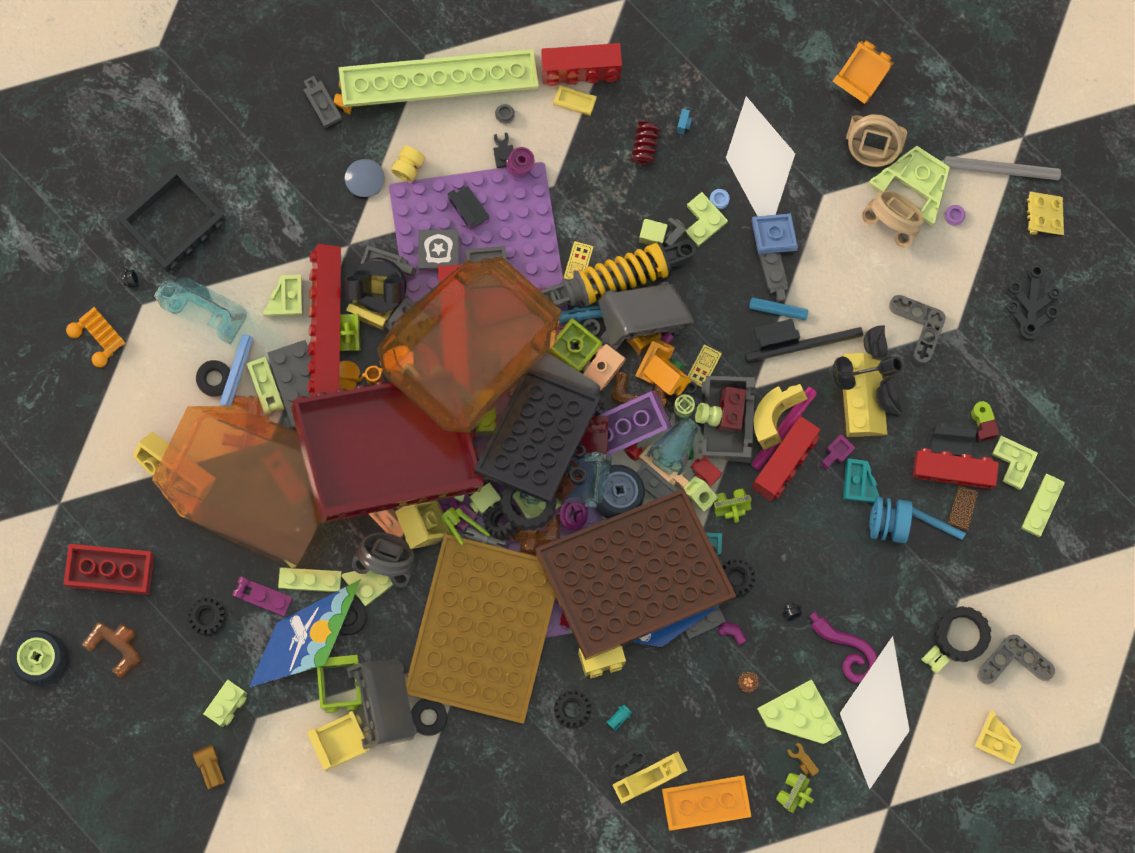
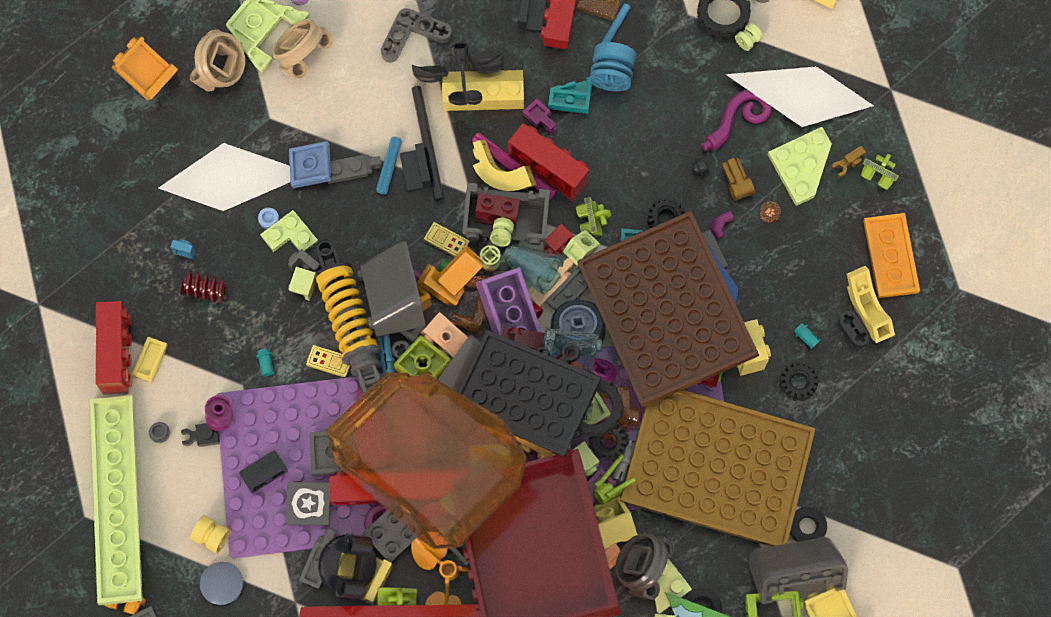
camera: 85 degrees left, 5 degrees down
(575, 204) = (265, 362): none -> teal pin
(776, 649) = (739, 184): none -> pearl gold piece

